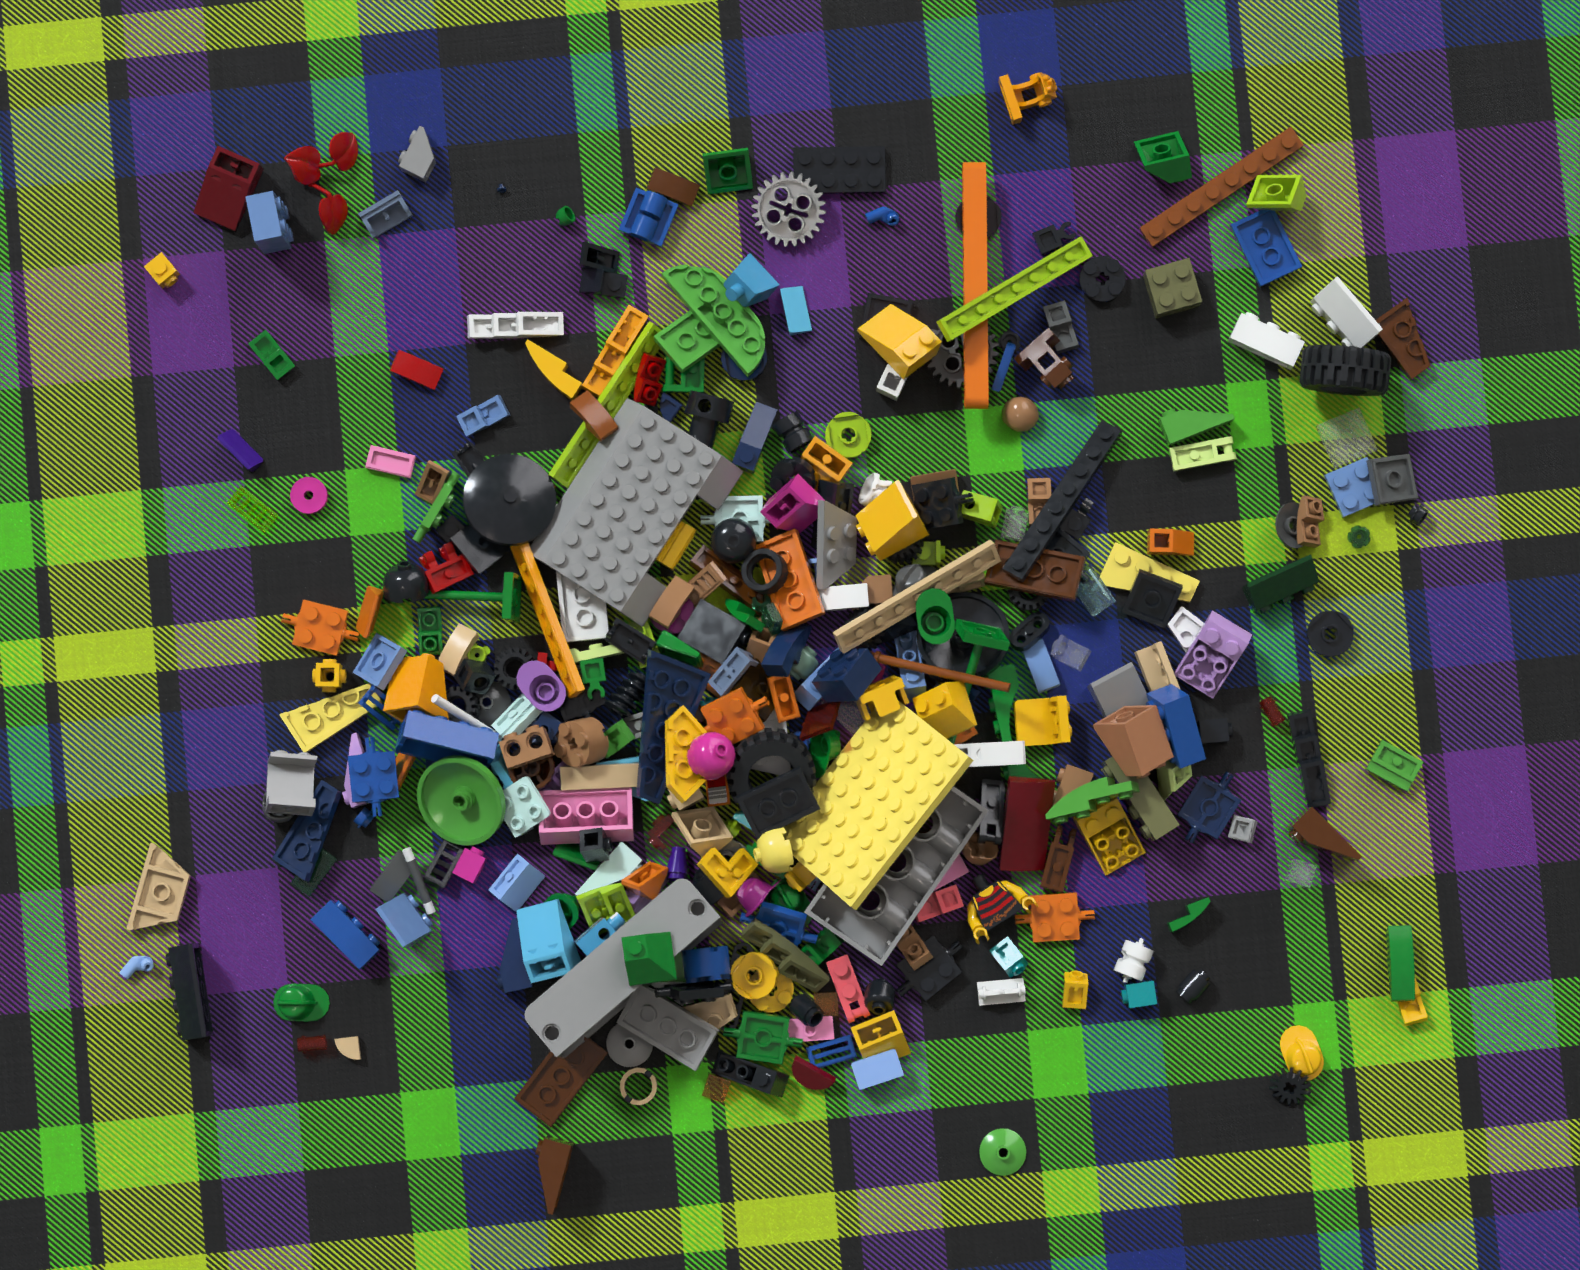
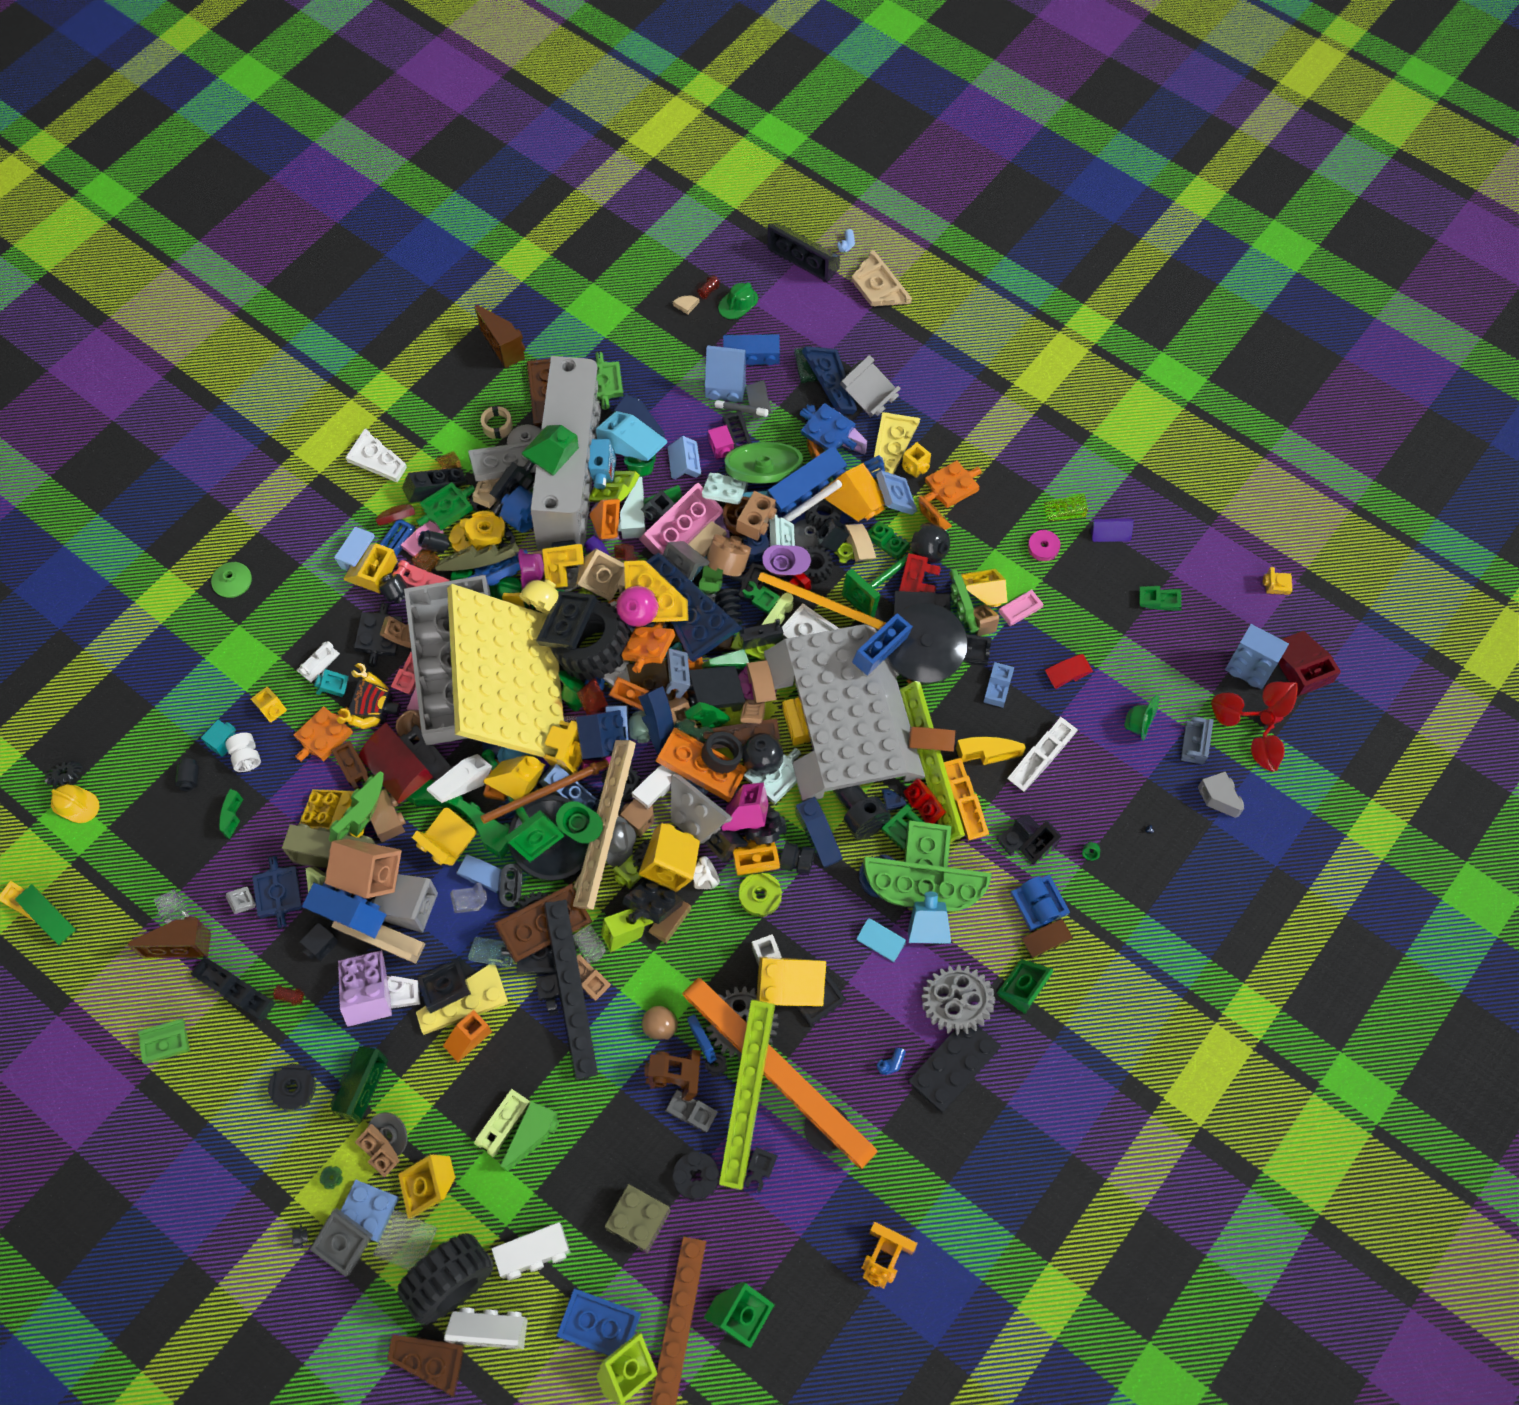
camera: 130 degrees right, 20 degrees down
(401, 508) = (987, 586): none -> yellow slope
(409, 275) = (1141, 716): none -> green piece
(505, 1036) = (608, 380): none -> bright green plate
(555, 521) = (882, 644): none -> blue brick
(621, 771) = (684, 558): none -> dark grey panel
(775, 1154) = (374, 457): none -> white wing
(1298, 458) = (426, 1183): none -> yellow slope

